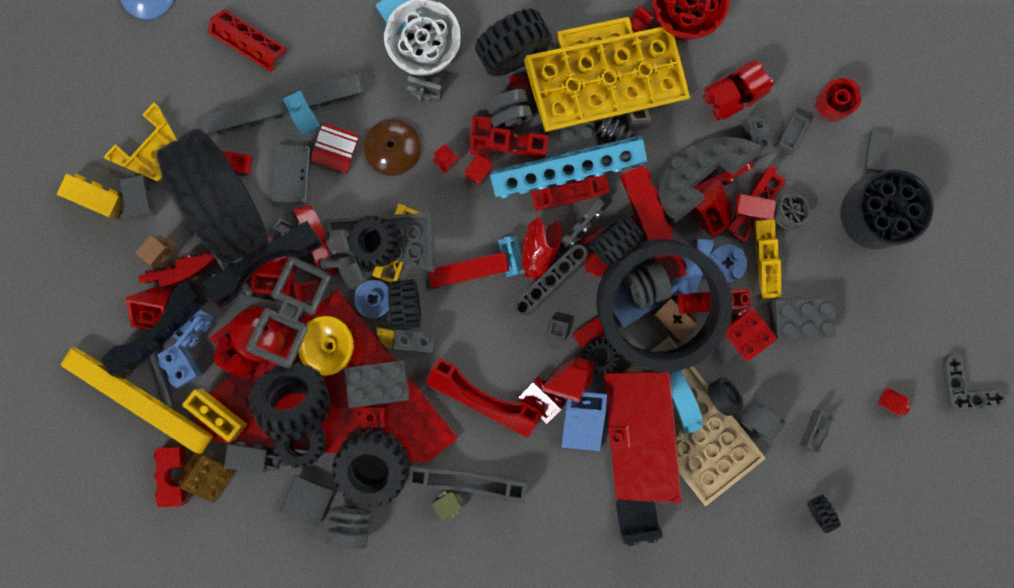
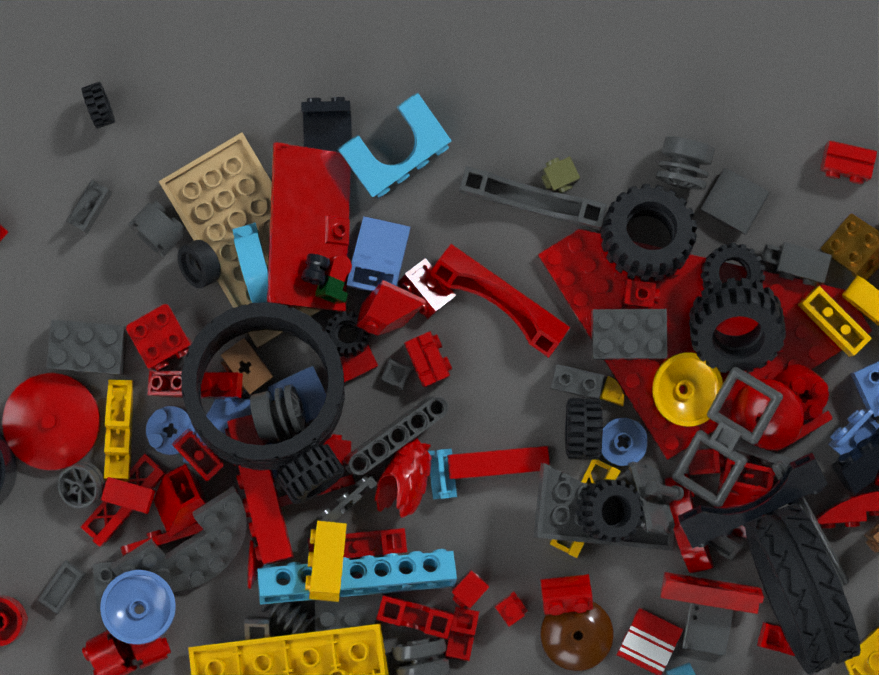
camera: 170 degrees left, 0 degrees up
(219, 544) = (848, 161): none -> red brick
(290, 190) = (711, 592): none -> red fence
(403, 174) = (566, 594): none -> red brick
(534, 344) = (427, 358): none -> red brick
(556, 520) = (428, 139): none -> medium azure arch
(594, 173) = (326, 561): none -> yellow brick
(618, 397) = (335, 278): none -> leg
(633, 403) = (315, 269): none -> black wheel
(650, 165) = (253, 564): none -> red dish
(705, 243) = (198, 454): none -> red brick
(750, 119) = (134, 590): none -> medium blue dish
(820, 258) = (51, 421): none -> red dish

